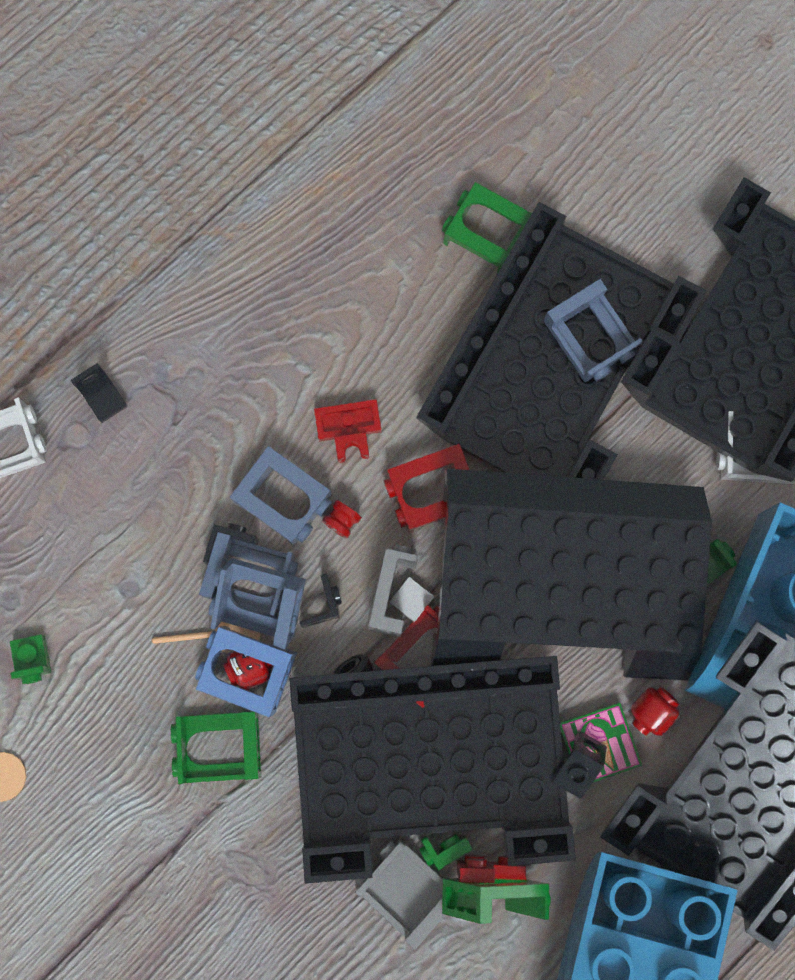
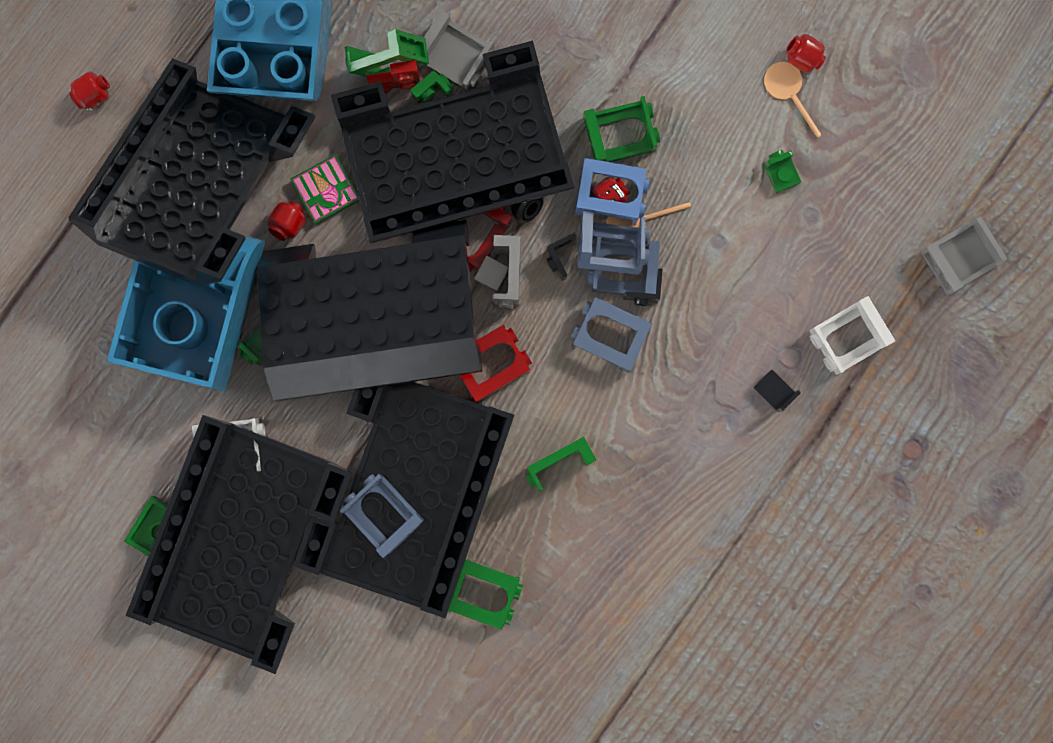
camera: 175 degrees right, 5 degrees up
(341, 519) = (559, 325): red wheel -> none
(348, 425) = (569, 403): red plate -> none
(374, 361) = (579, 445): none -> green panel
(581, 765) = (336, 166): black bracket -> none

